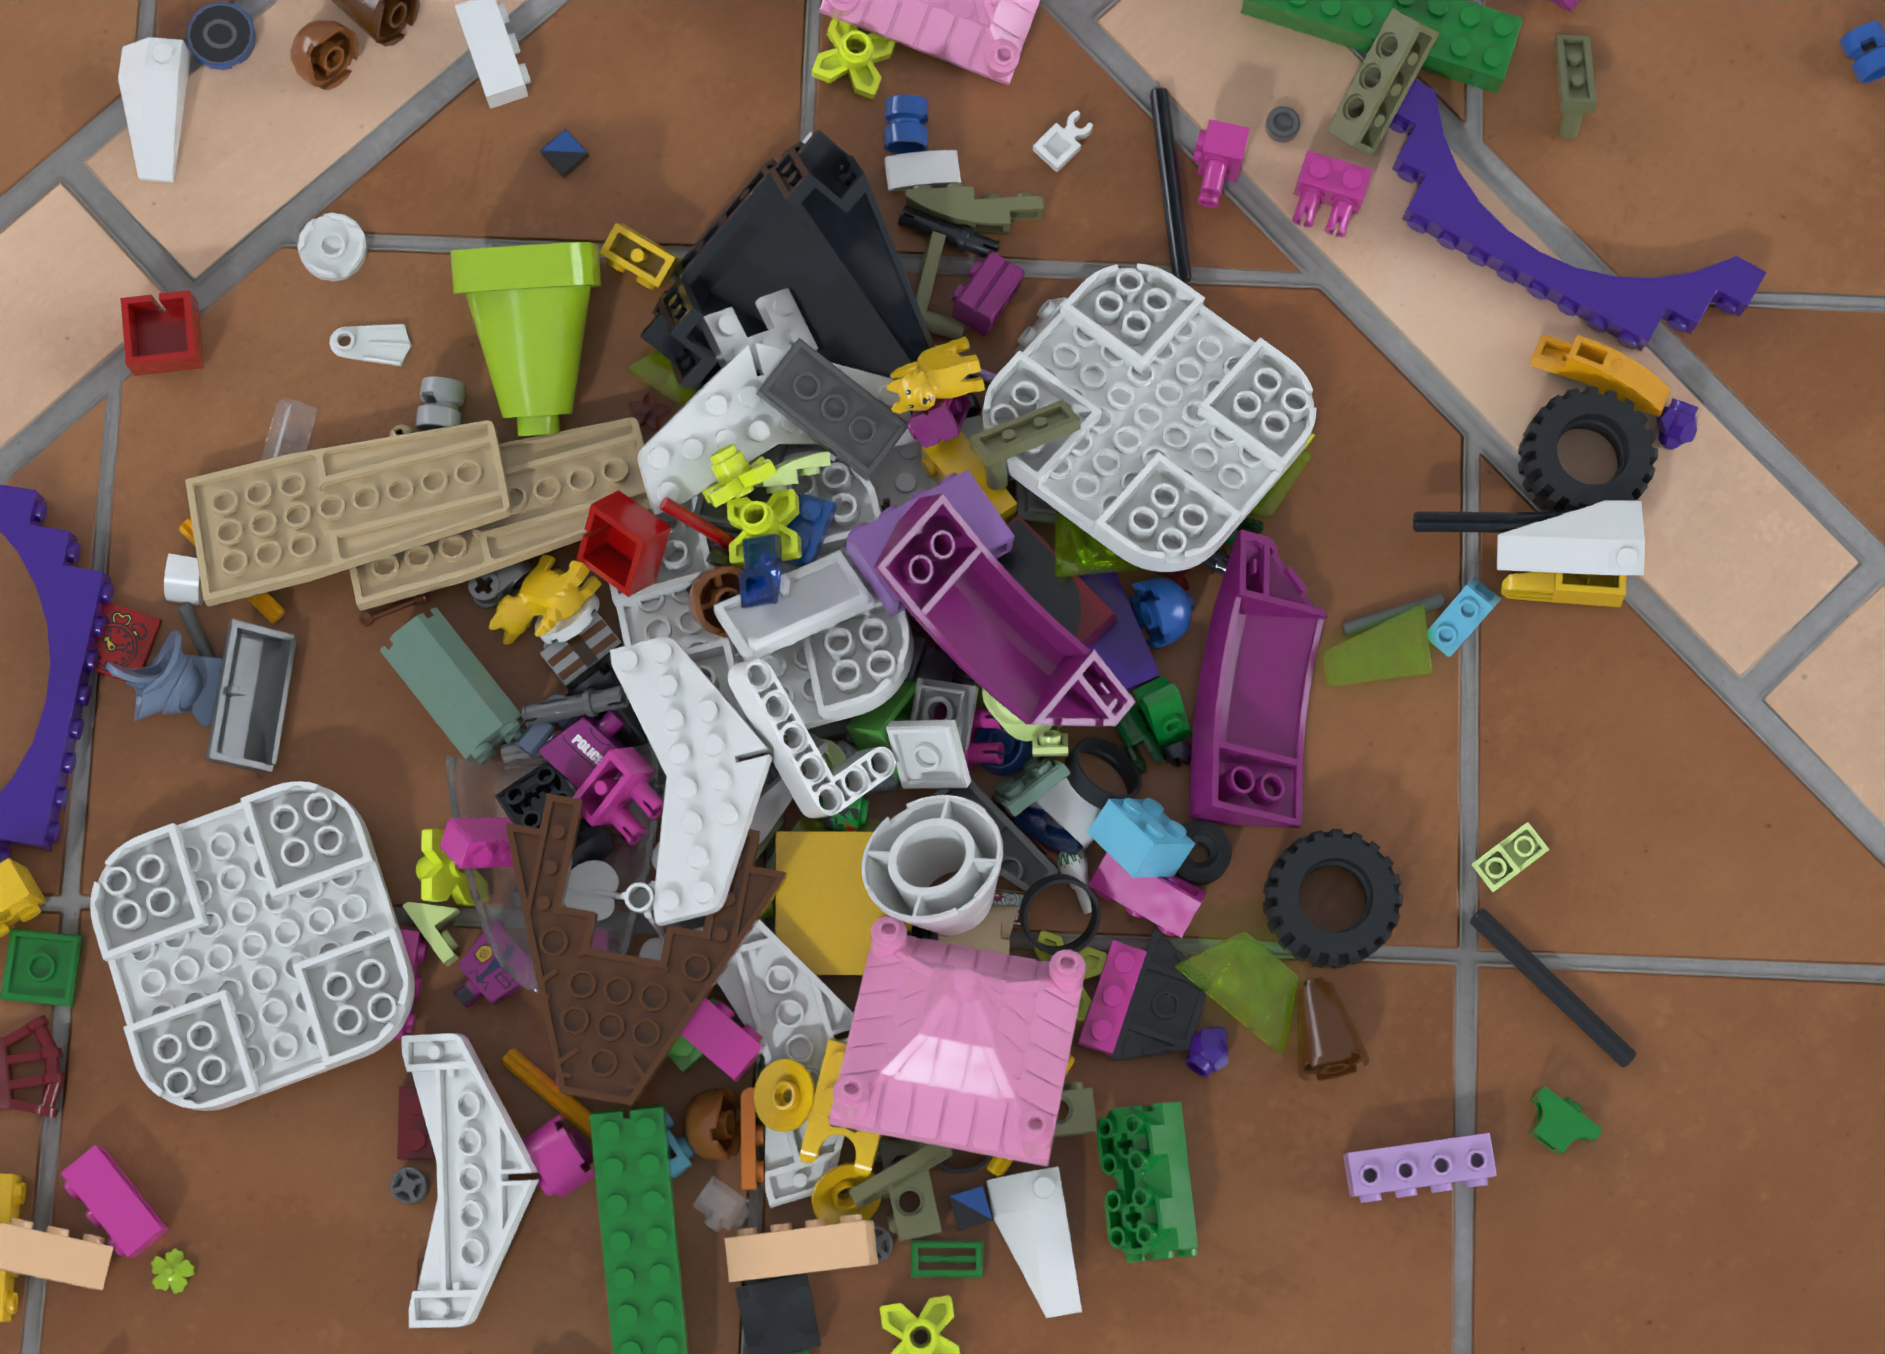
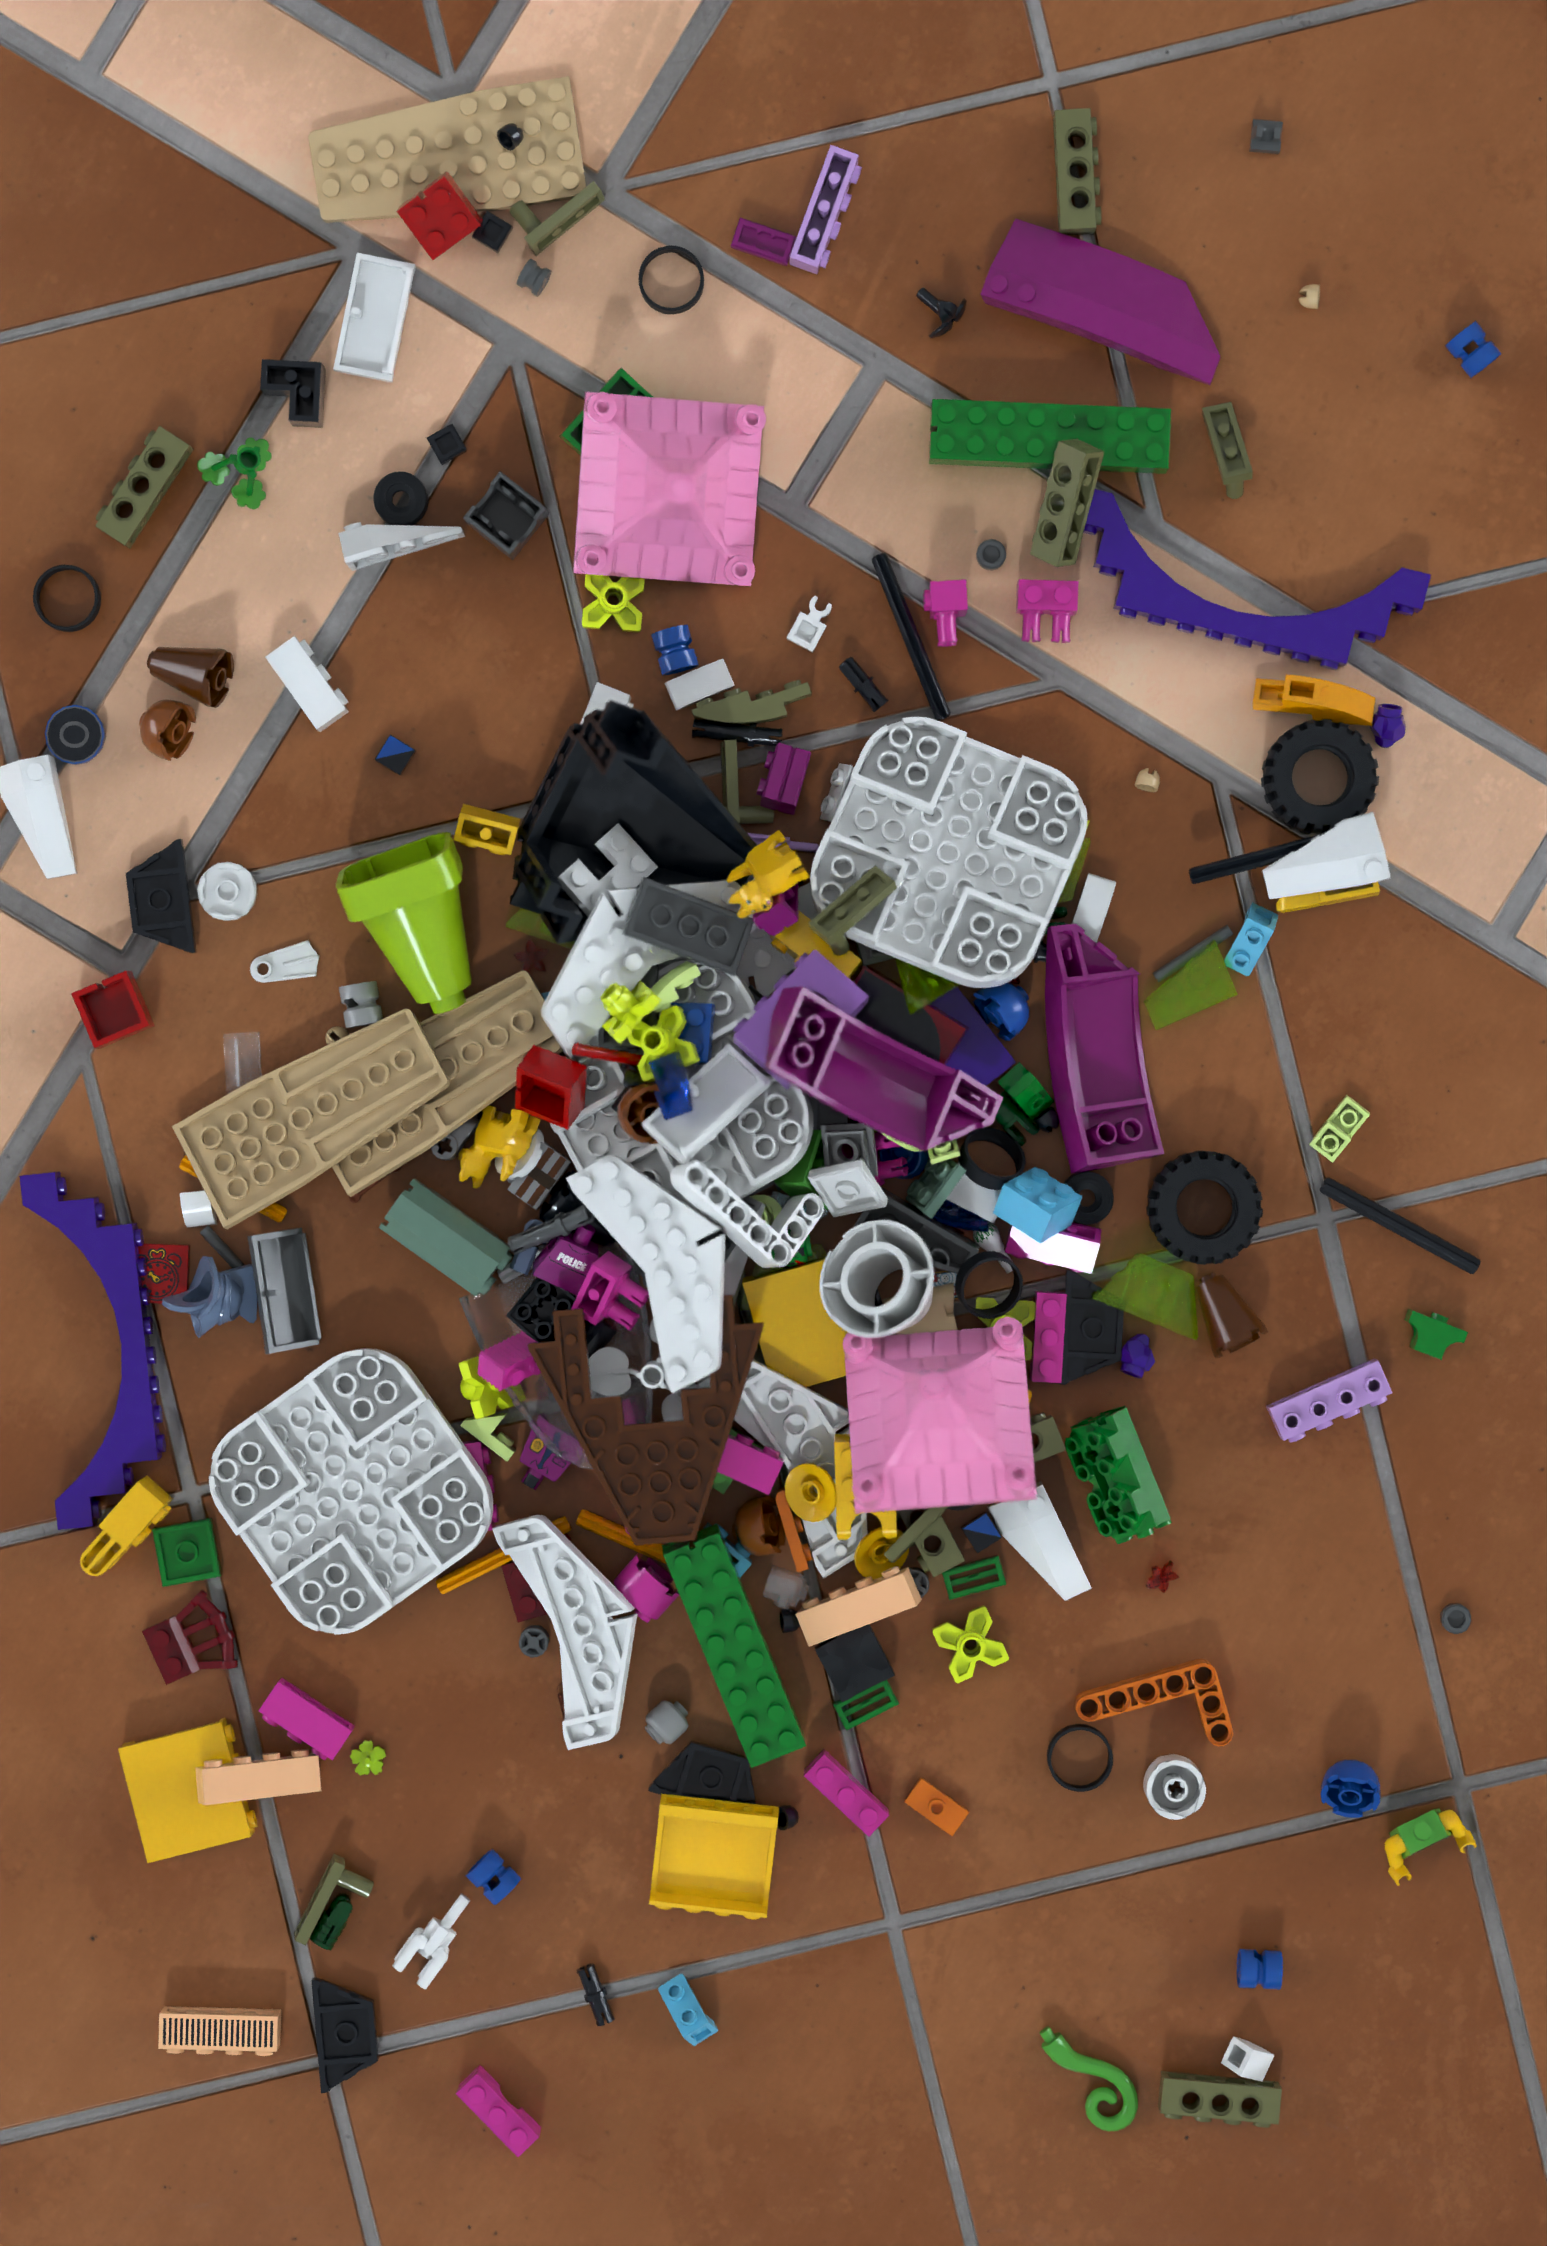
camera: 15 degrees left, 10 degrees up
(257, 233) = (162, 898): none -> black wing
(379, 1080) = (485, 1564): none -> light orange axle
(535, 1327) = (666, 1722): none -> light grey head
(714, 1247) = (788, 1620): none -> black hinge
(1103, 220) = (863, 683): none -> black axle
(1168, 1321) = (1161, 1577): none -> clear red plant
(1296, 527) = (1094, 905): none -> white slope
(1391, 411) = (1146, 781): none -> tan hinge

